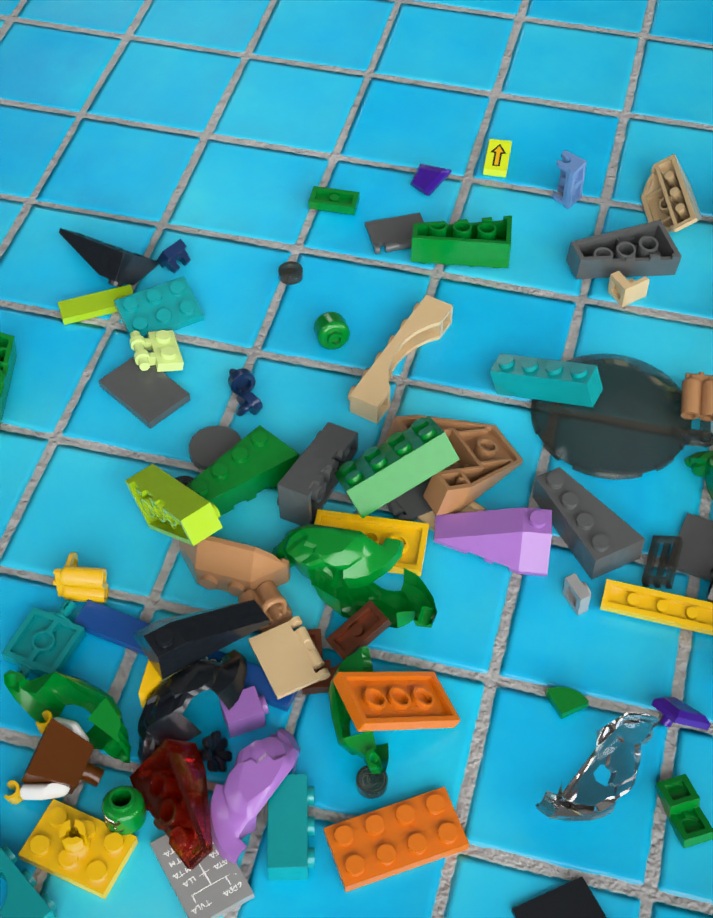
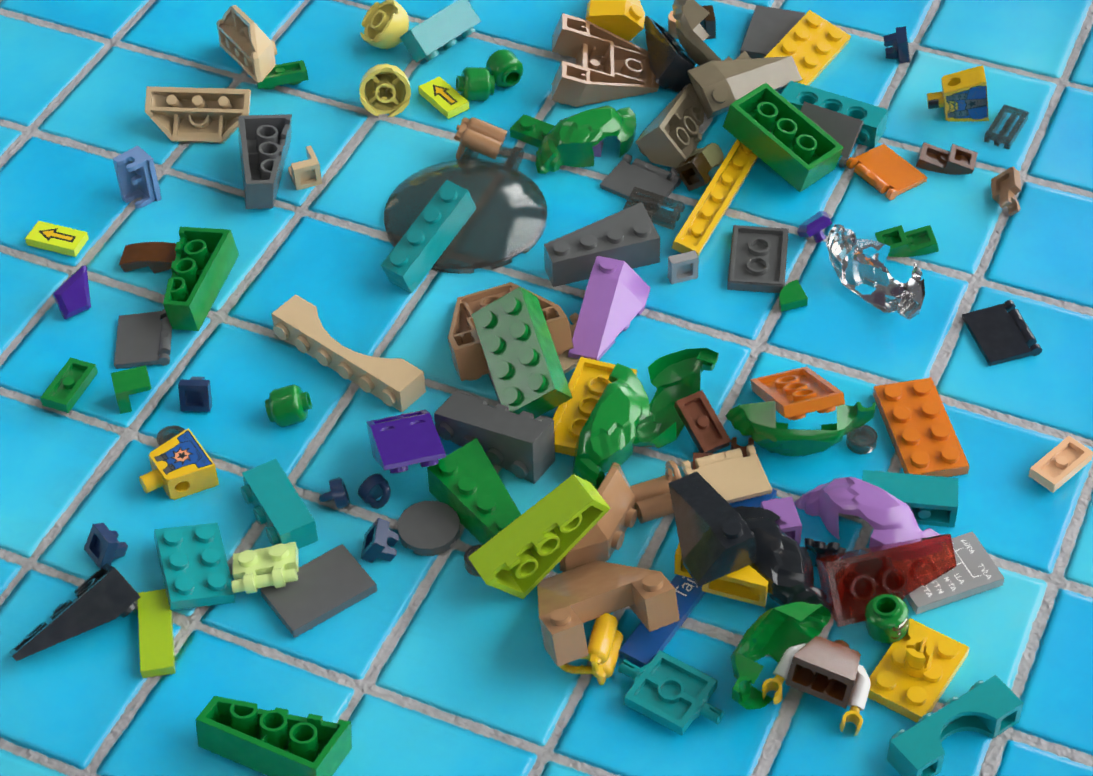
camera: 80 degrees left, 5 degrees down
(135, 560) = (597, 589): none -> medium nougat wedge
(191, 413) = (376, 542): none -> dark blue tile
(221, 347) = (278, 505): none -> teal brick
(257, 280) = (180, 467): none -> yellow torso
(285, 405) = (405, 441): none -> dark purple slope
(333, 229) = (129, 382): none -> green panel
(336, 272) = (195, 394): none -> dark blue tile
(488, 207) = (152, 254): none -> reddish brown slope
(617, 665) = (758, 259): none -> dark grey tile

